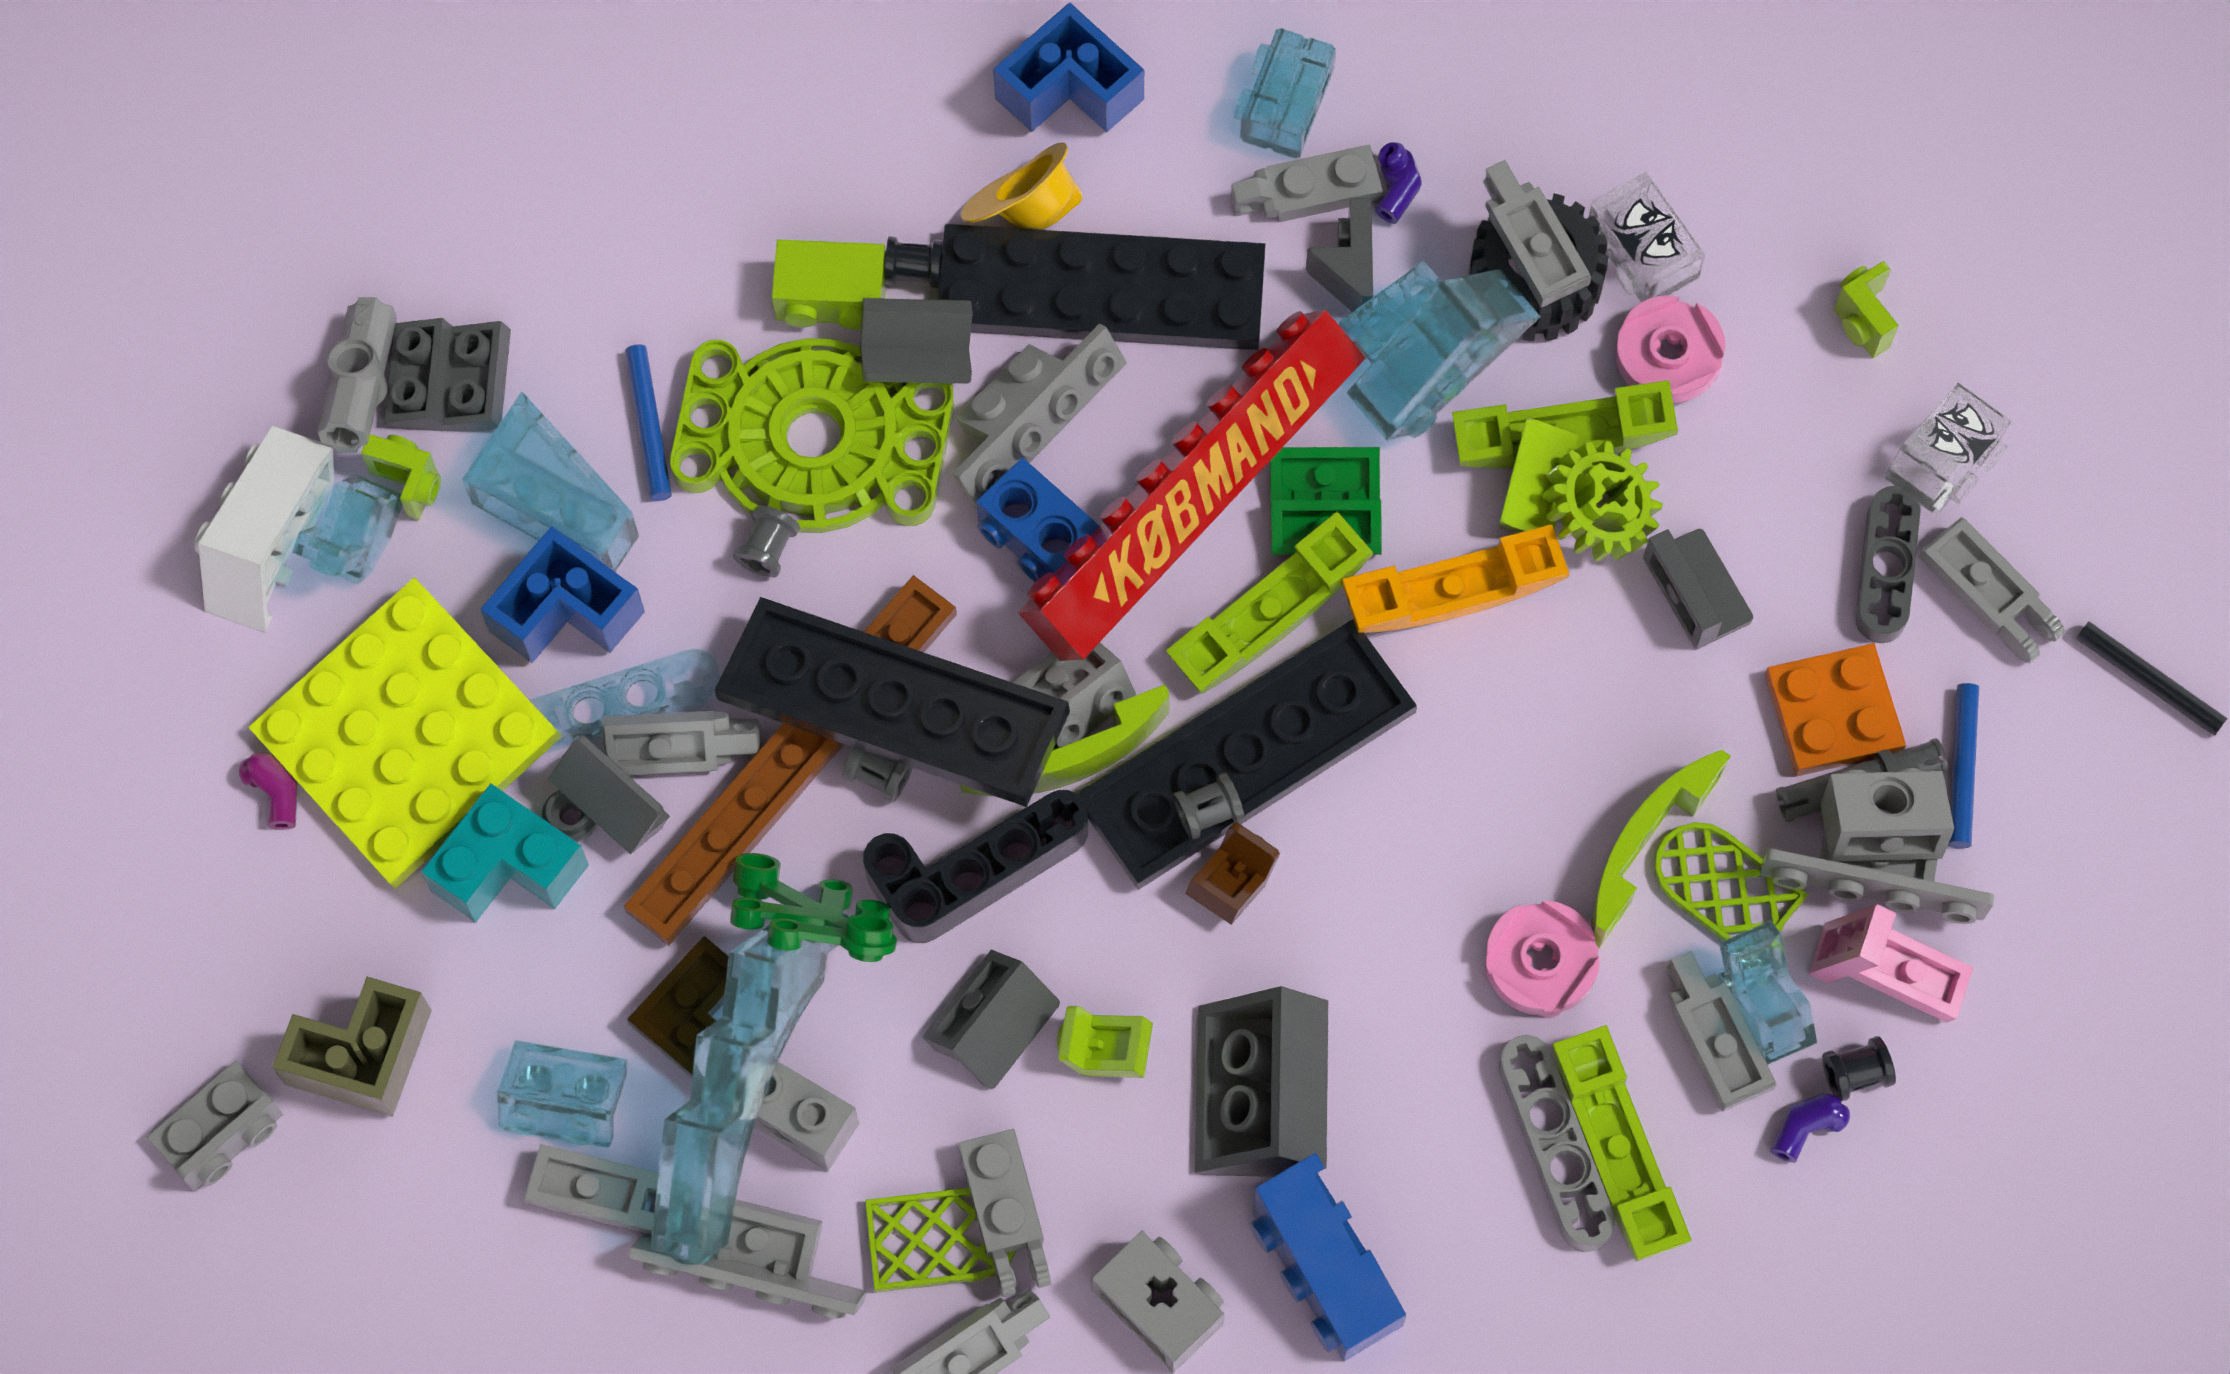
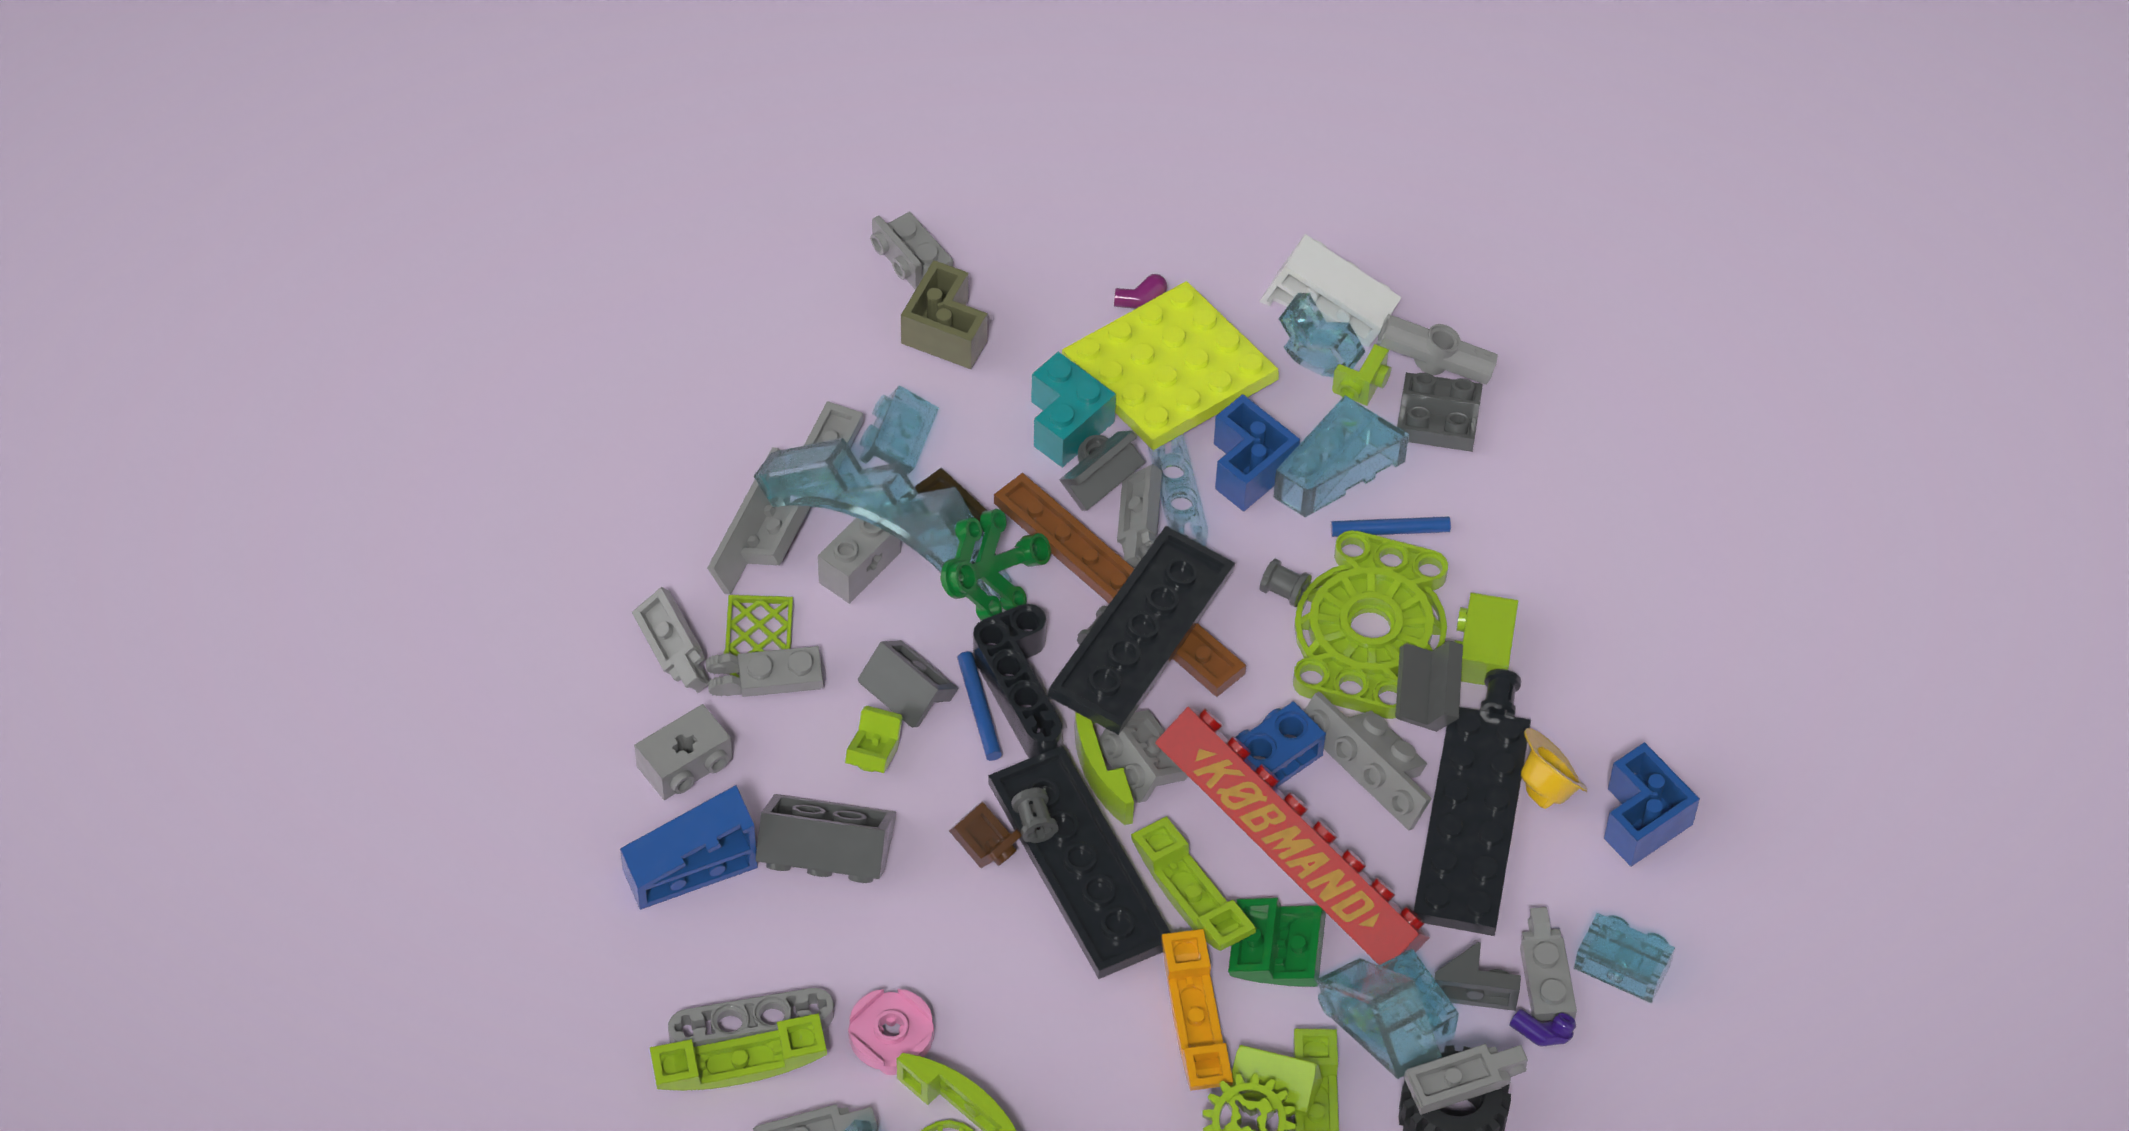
camera: 95 degrees right, 15 degrees down
(1013, 919) = (979, 706): none -> blue bar

